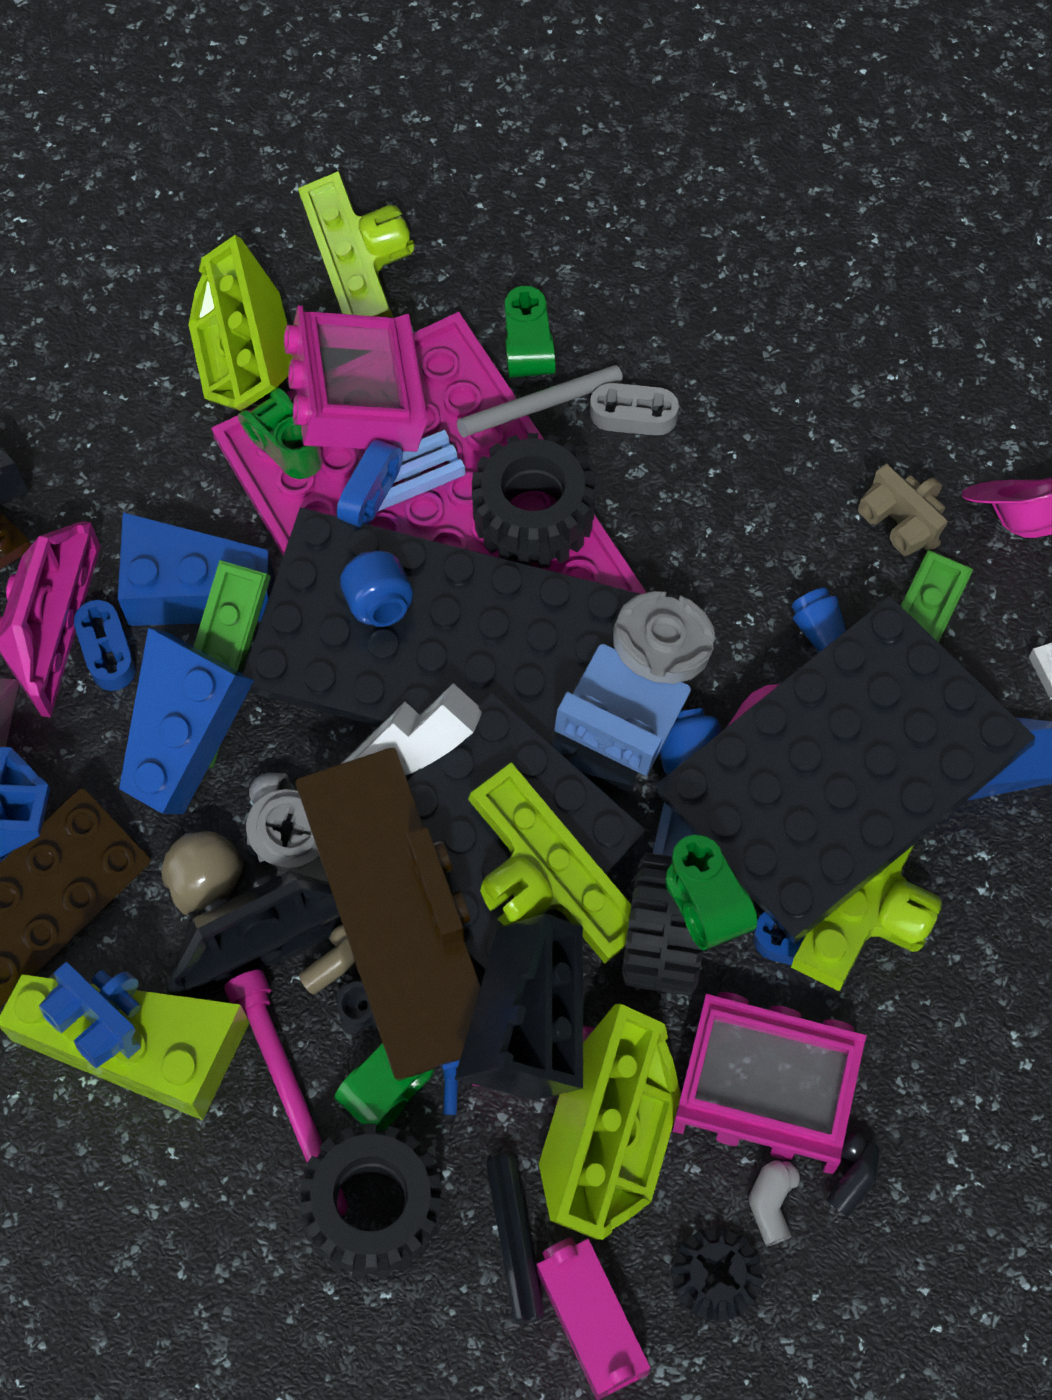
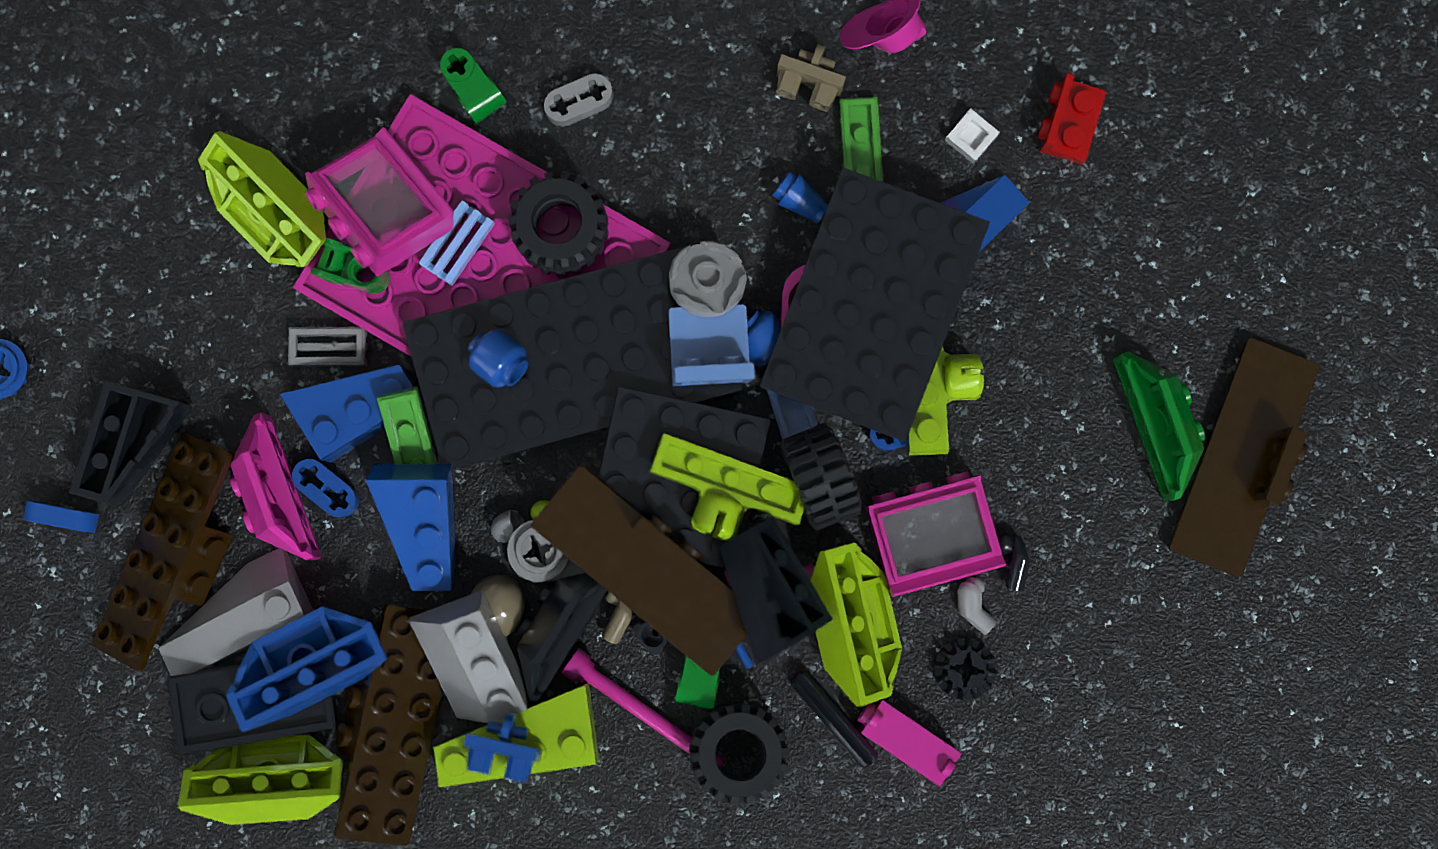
camera: 30 degrees left, 20 degrees up
(134, 900) = (472, 659): none -> light grey slope
(197, 522) = (294, 347): none -> light grey tile
(355, 245) = (300, 82): lime plate -> none
(369, 483) = (440, 277): blue beam -> none
(424, 736) = (583, 444): white slope -> none
(537, 401) = (512, 135): light grey bar -> none
(708, 893) = (851, 464): green piece -> none

